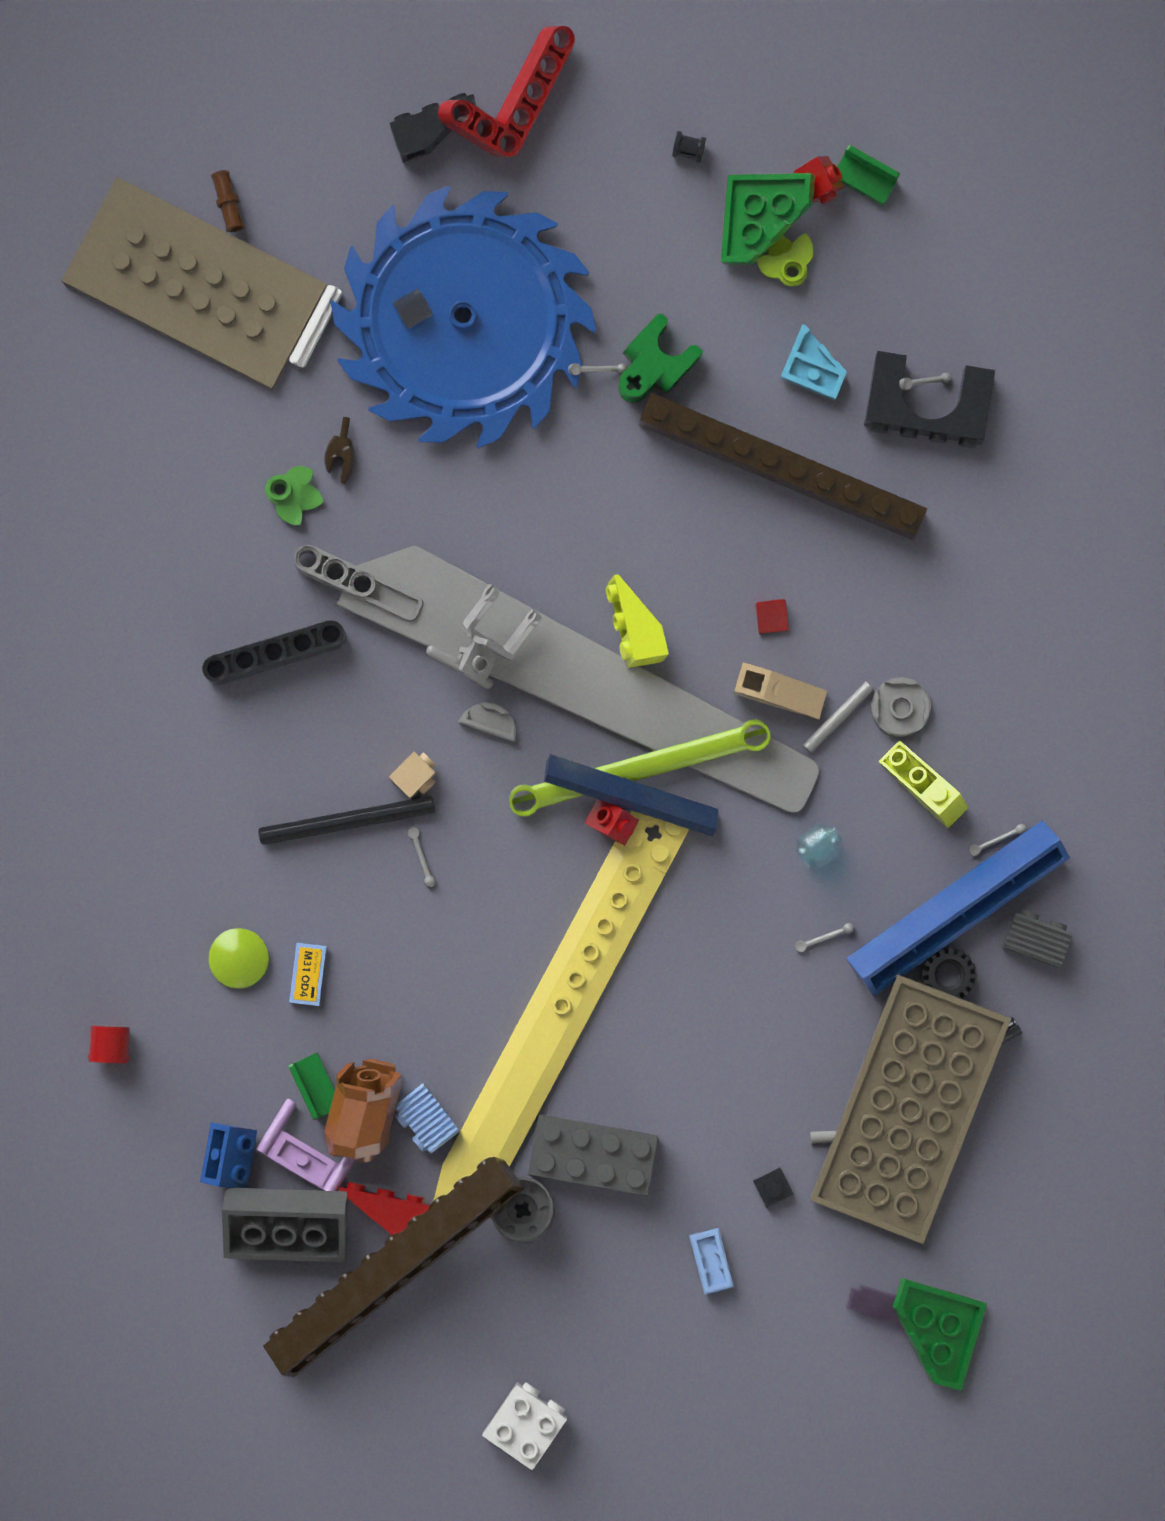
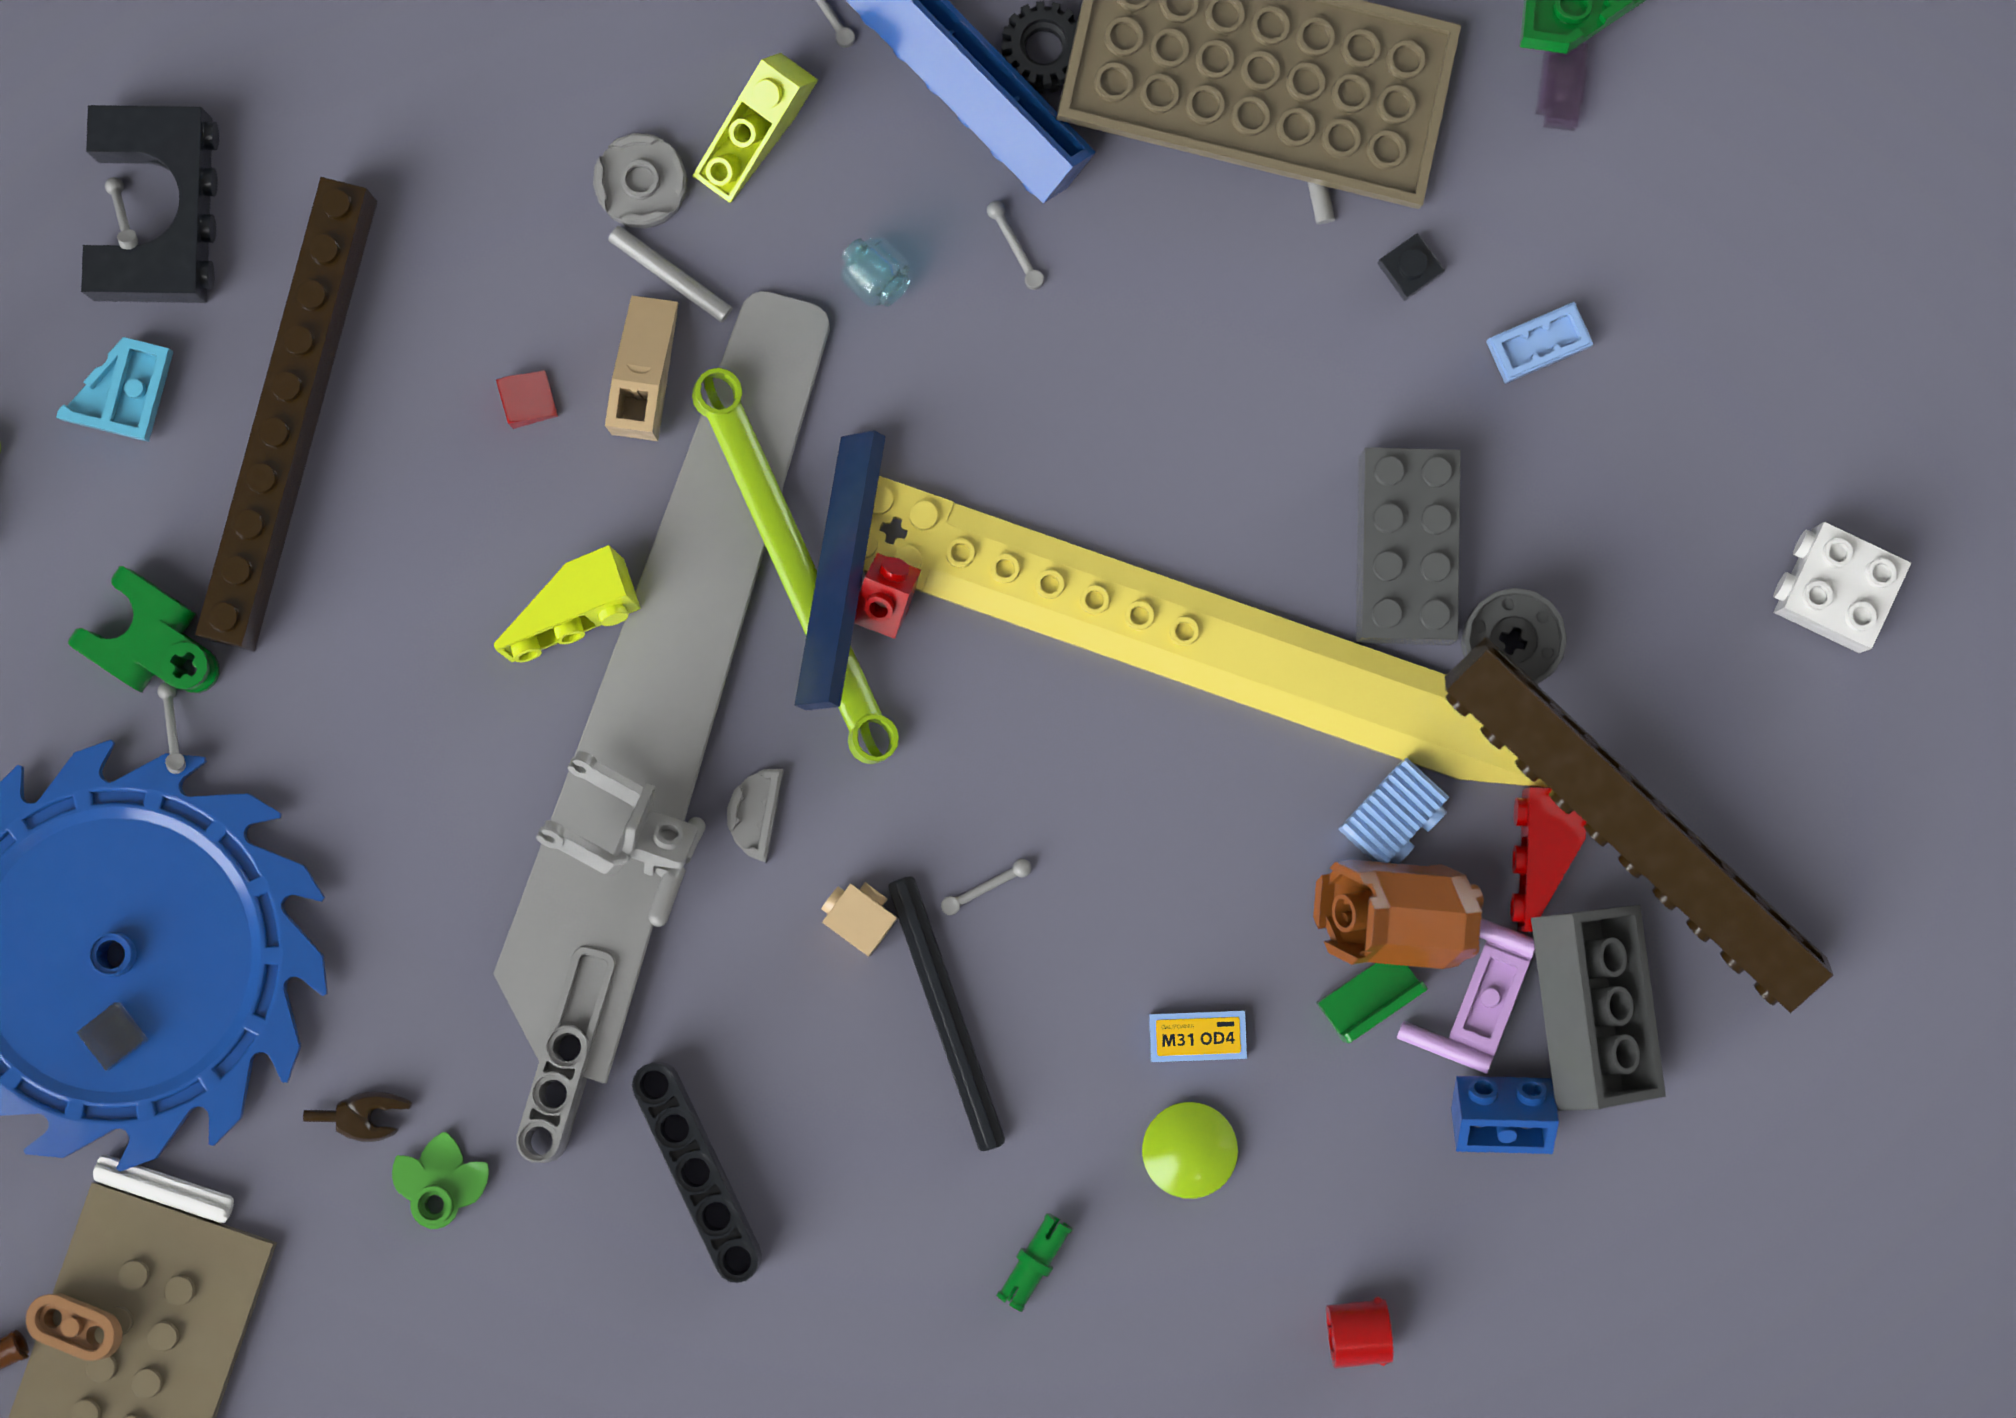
camera: 100 degrees left, 0 degrees up
(185, 851) = (1034, 1262): none -> green pin
(239, 264) = (77, 1327): none -> medium nougat plate

